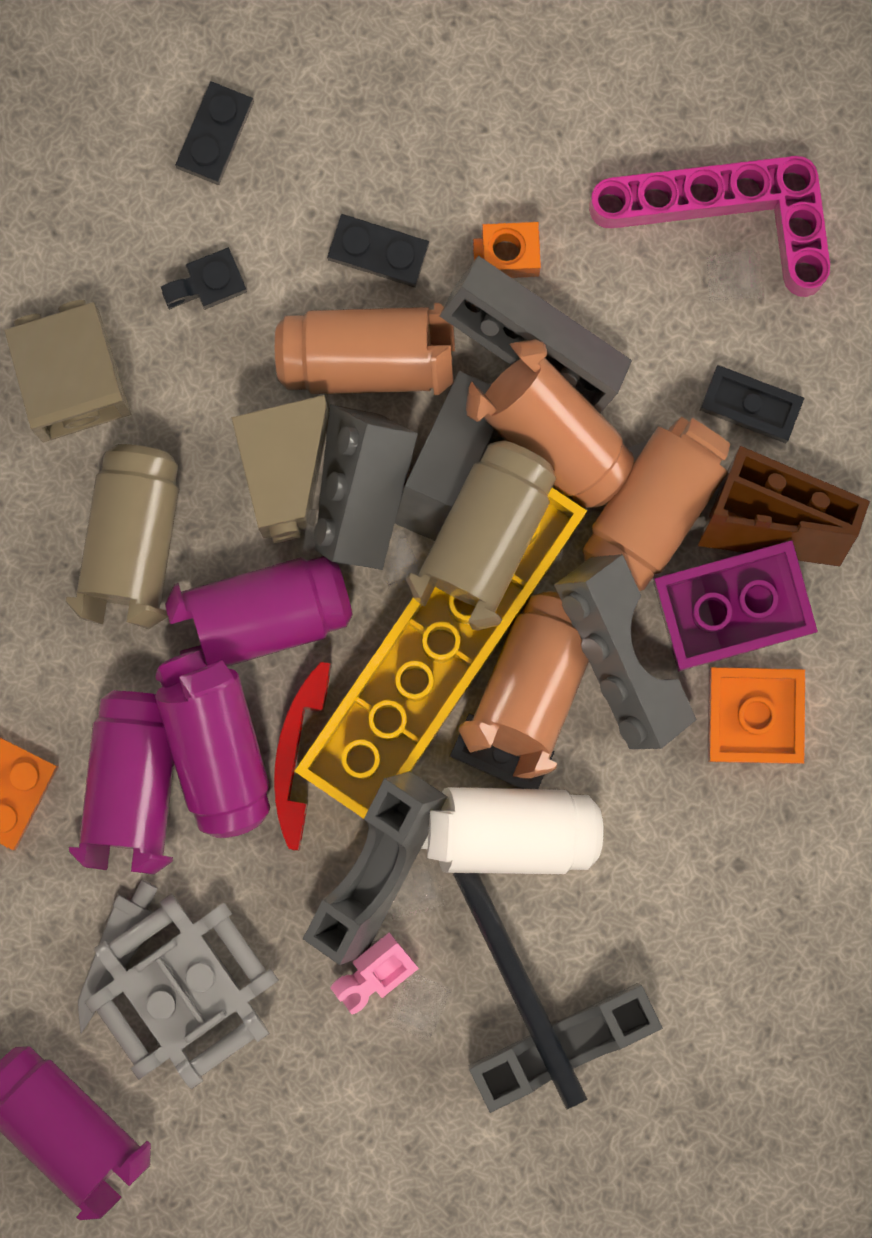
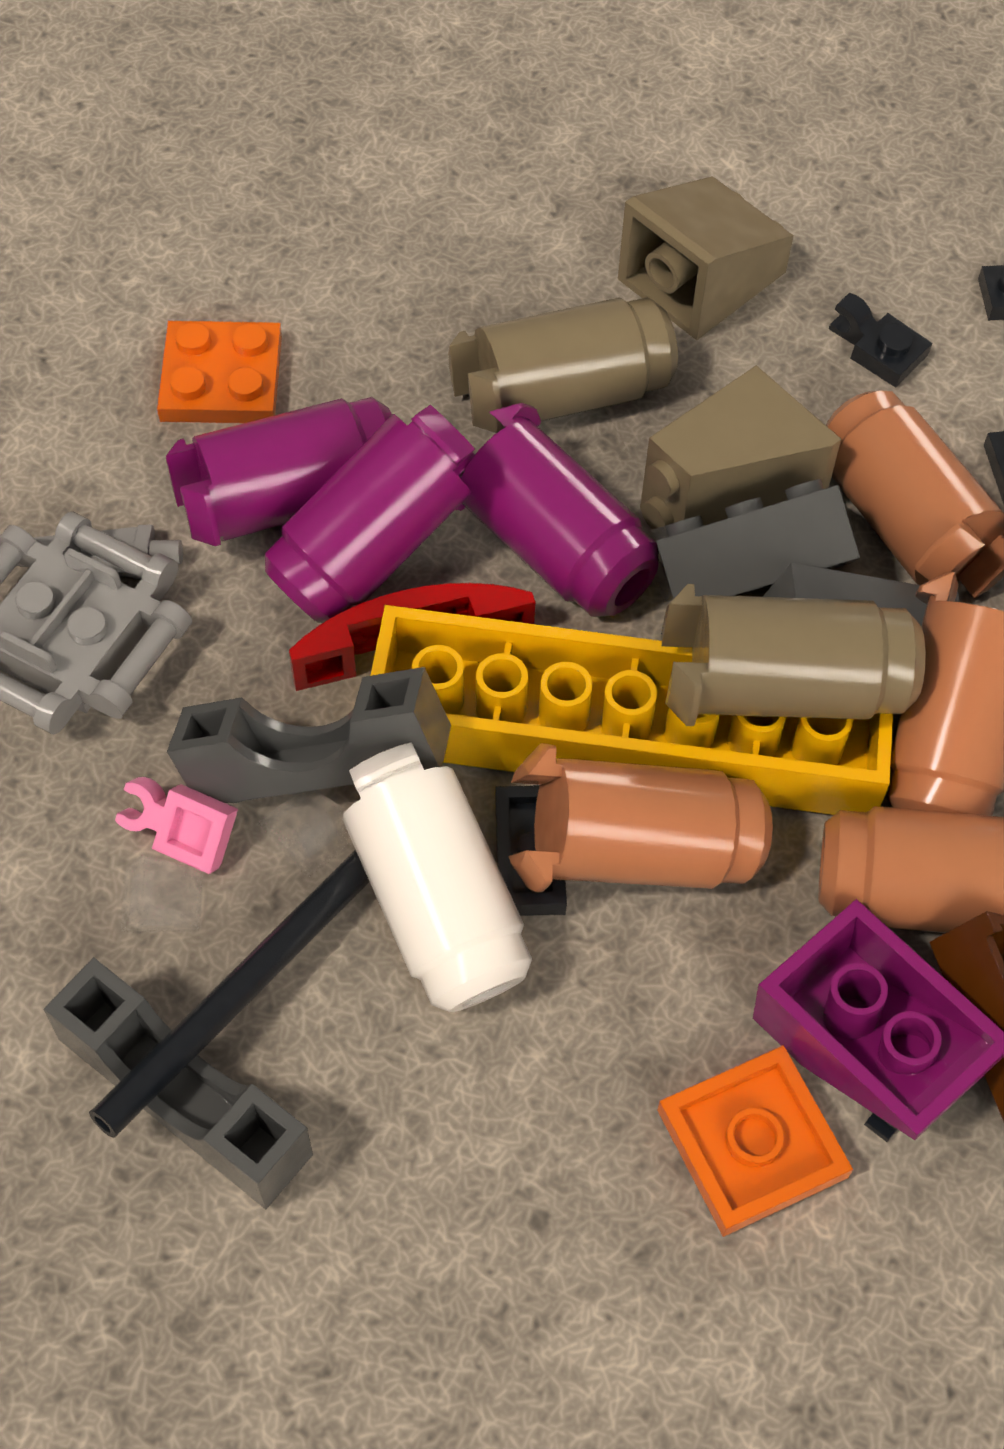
camera: 65 degrees right, 25 degrees down
(601, 605) = (688, 968): dark grey arch -> none

